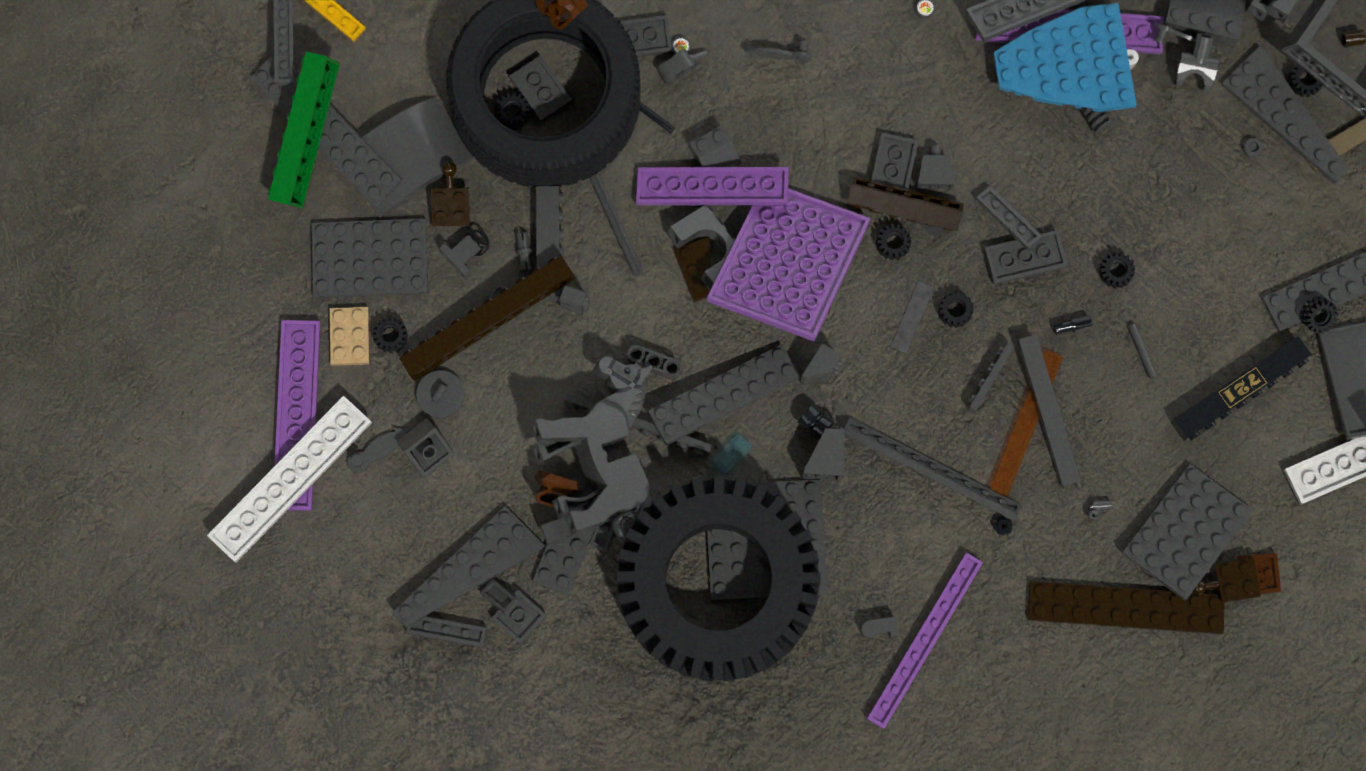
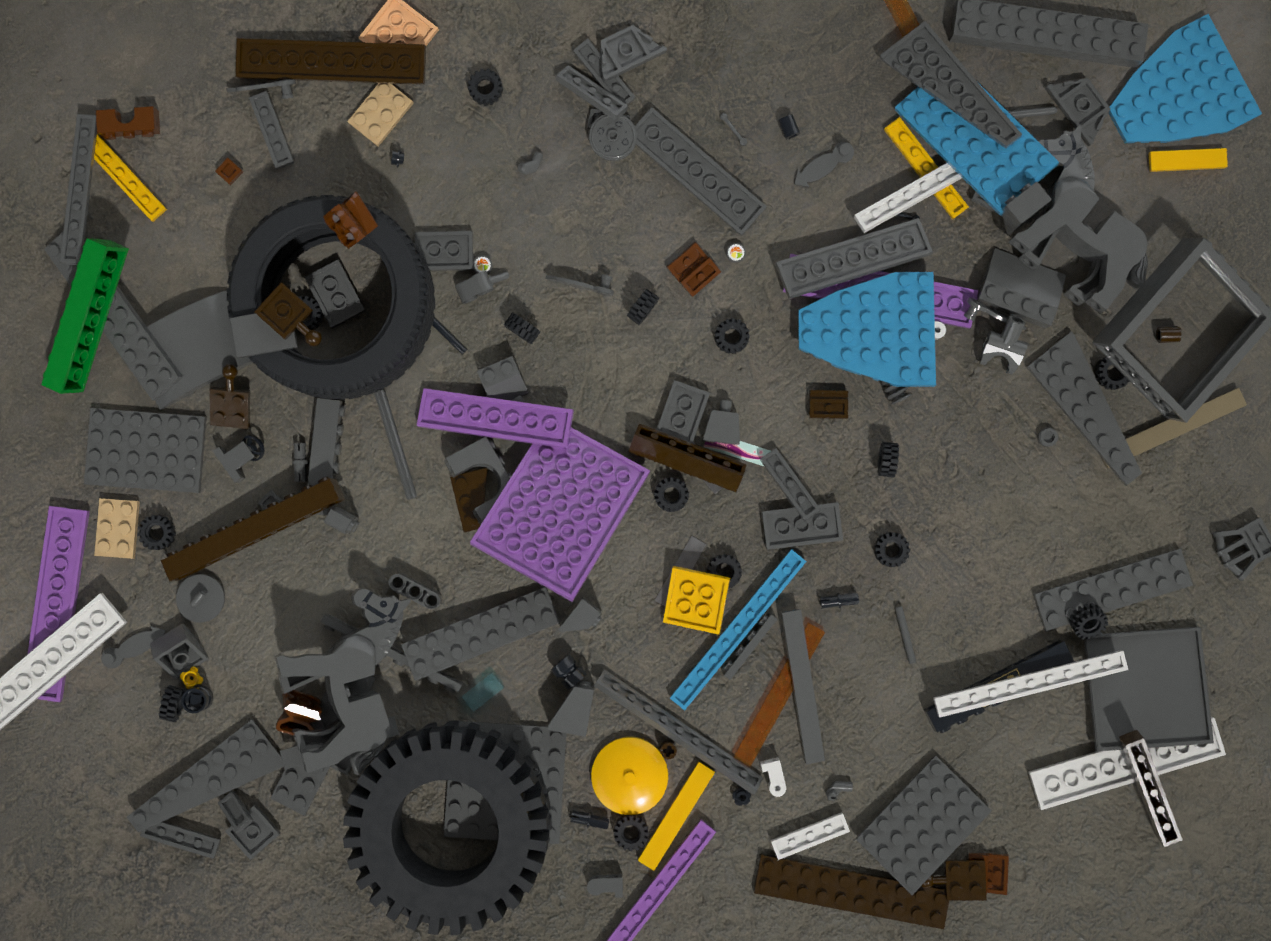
camera: 10 degrees right, 10 degrees up
(425, 496) = (171, 703): none -> black tyre
(440, 467) = (185, 676): none -> yellow plate
(449, 490) = (197, 699): none -> black wheel
(489, 116) = (256, 337): none -> dark grey tile
(510, 93) = (285, 313): none -> dark brown plate
(728, 99) = (522, 328): none -> black tyre
(842, 66) = (643, 306): none -> black tyre
(855, 566) = (590, 820): none -> black axle
(886, 28) = (693, 269): none -> reddish brown slope
(889, 519) = (629, 775): none -> yellow dish
(889, 581) = (636, 843): none -> black tyre
(924, 487) = (668, 749): none -> dark brown piece
(932, 96) = (738, 326): none -> black tyre
(932, 337) = (696, 600): none -> yellow plate
(940, 553) = (676, 815): none -> yellow tile
(957, 194) = (742, 451): none -> sticker
(976, 364) = (737, 629): none -> dark azure plate
(1034, 502) = (776, 779): none -> white leg
(1035, 139) = (828, 404): none -> dark brown plate
(1076, 556) = (810, 835): none -> white plate
(1100, 183) = (888, 459): none -> black tyre
(1271, 378) = (1030, 683): none -> white plate

